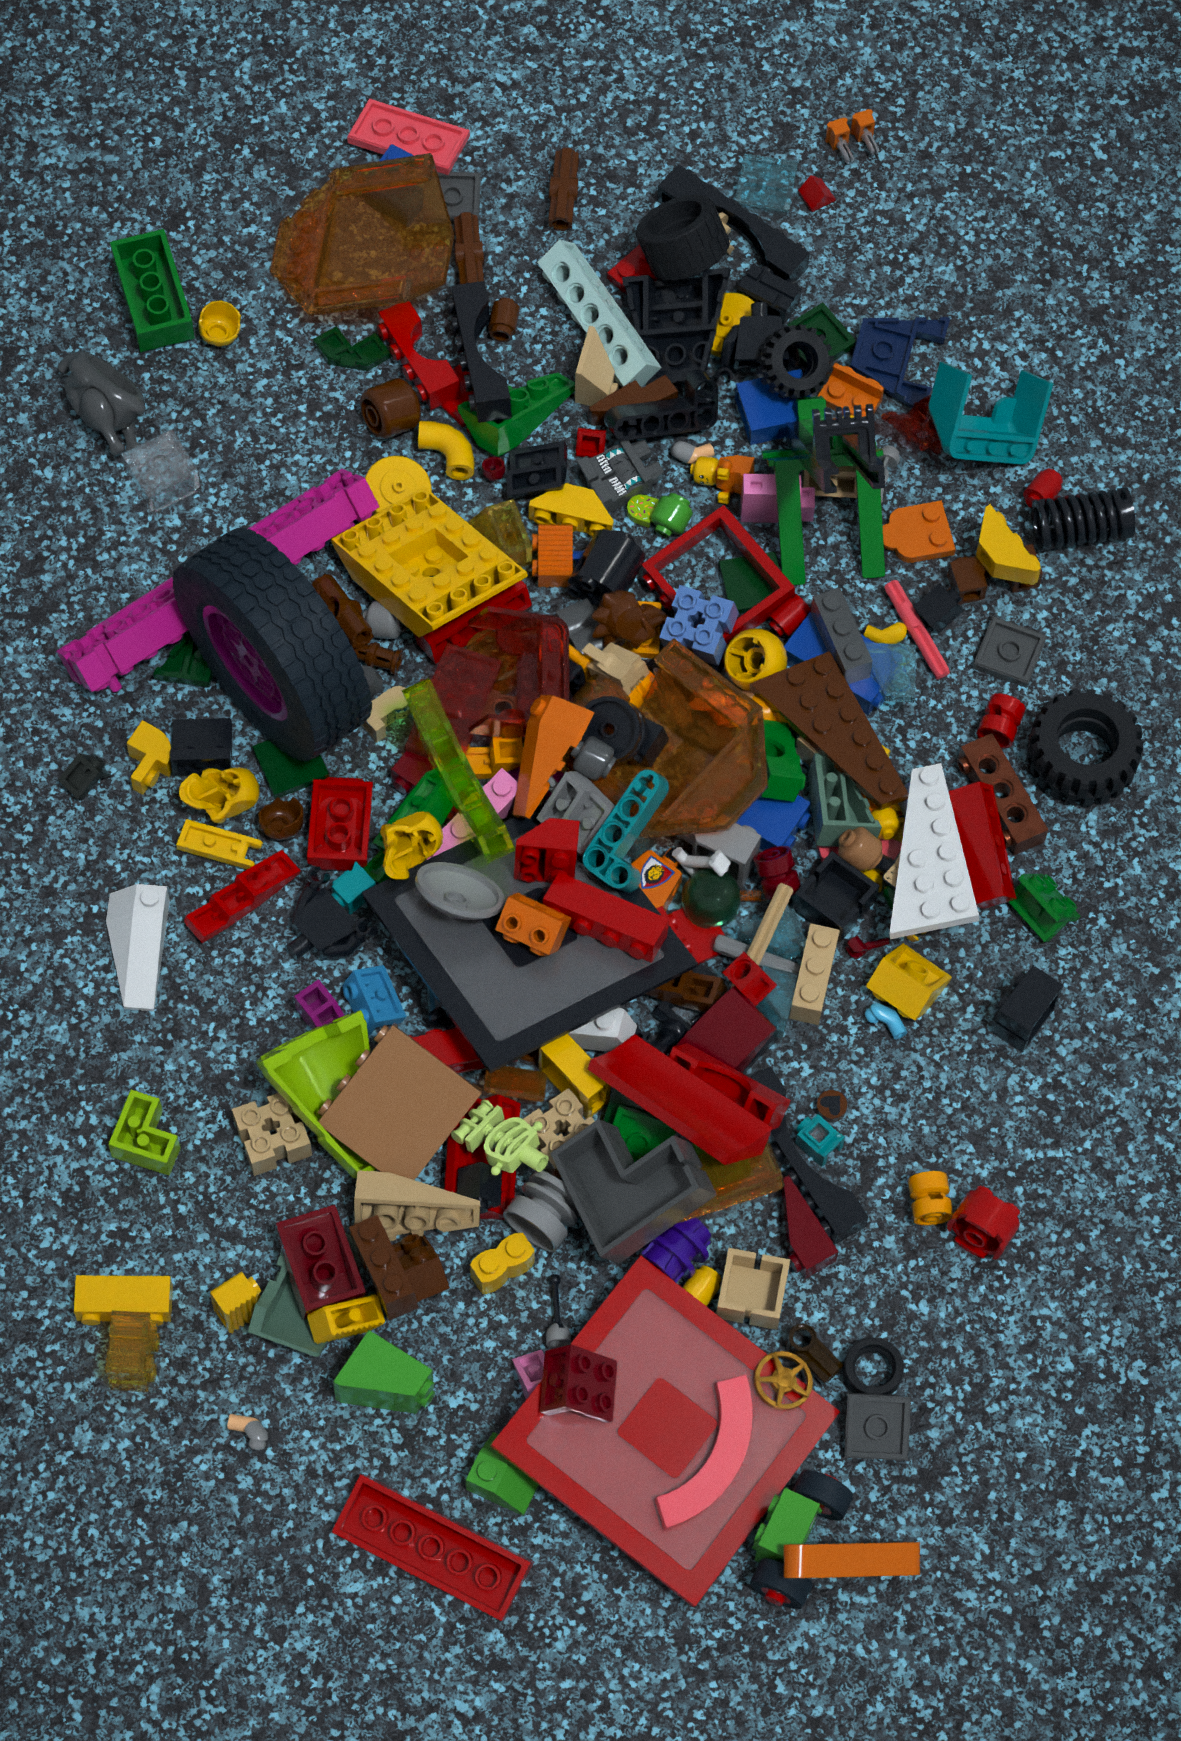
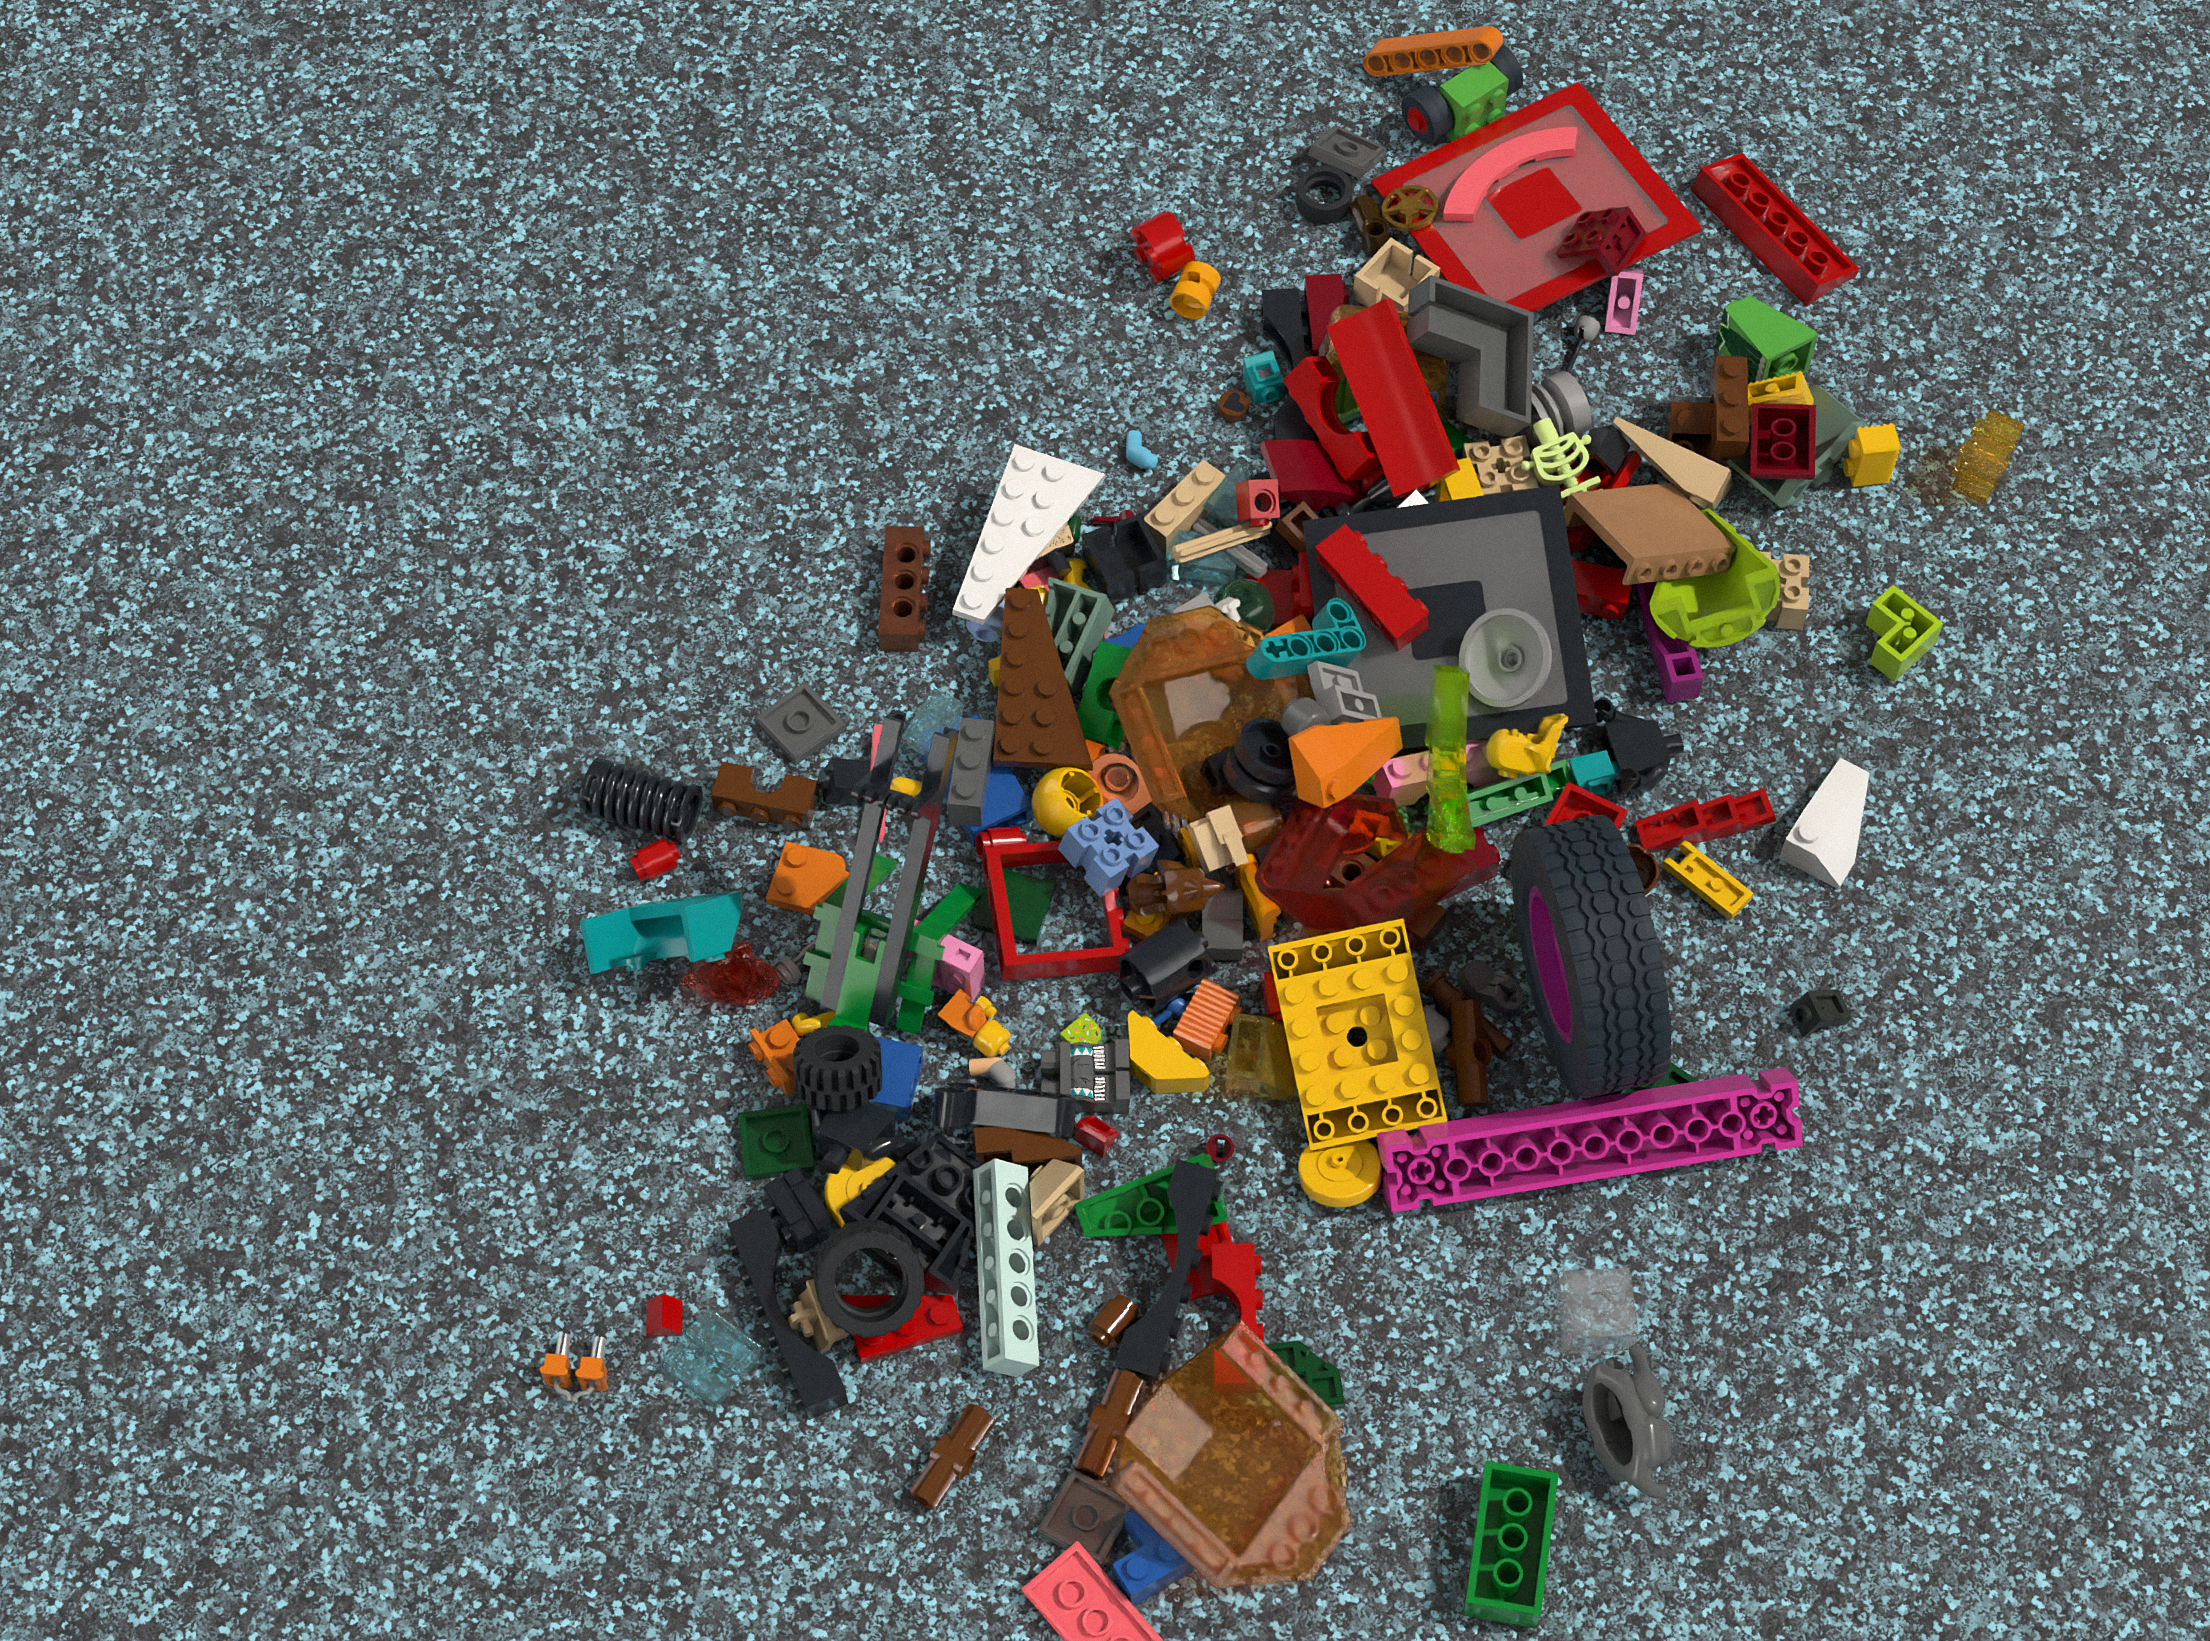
camera: 150 degrees left, 5 degrees down
(100, 1295) = (1974, 514): yellow brick -> none
(152, 750) = (1737, 1001): yellow brick -> none
(201, 745) = (1691, 979): black bracket -> none
(219, 323) = (1448, 1465): yellow hair -> none
(221, 792) = (1689, 916): yellow head -> none
(251, 1427) = (1896, 375): arm -> none
(375, 996) = (1619, 667): dark azure bracket -> none
(385, 710) = (1471, 938): tan leg -> none
(390, 408) = (1300, 1262): reddish brown head -> none
(450, 443) = (1252, 1197): yellow cylinder -> none
(500, 1480) = (1691, 257): bright green slope -> none
(508, 1260) = (1613, 396): yellow brick -> none
(532, 924) = (1448, 597): orange brick -> none
(537, 469) = (1176, 1115): black slope -> none
(547, 851) = (1393, 662): red slope -> none
(671, 515) = (1058, 1006): bright green head -> none
(776, 867) = (1166, 595): dark red wheel -> none
(860, 848) = (1080, 571): medium nougat head -> none
(885, 349) = (714, 1087): dark blue wing -> none
(908, 982) = (1106, 452): yellow slope -> none
(983, 843) = (955, 539): red brick -> none
(1002, 718) = (855, 653): red wheel -> none
(1004, 551) = (750, 789): yellow slope -> none
(1026, 1008) = (1010, 388): black piece -> none
(1043, 905) = (930, 476): green bracket -> none
(1091, 714) = (793, 551): black tyre -> none

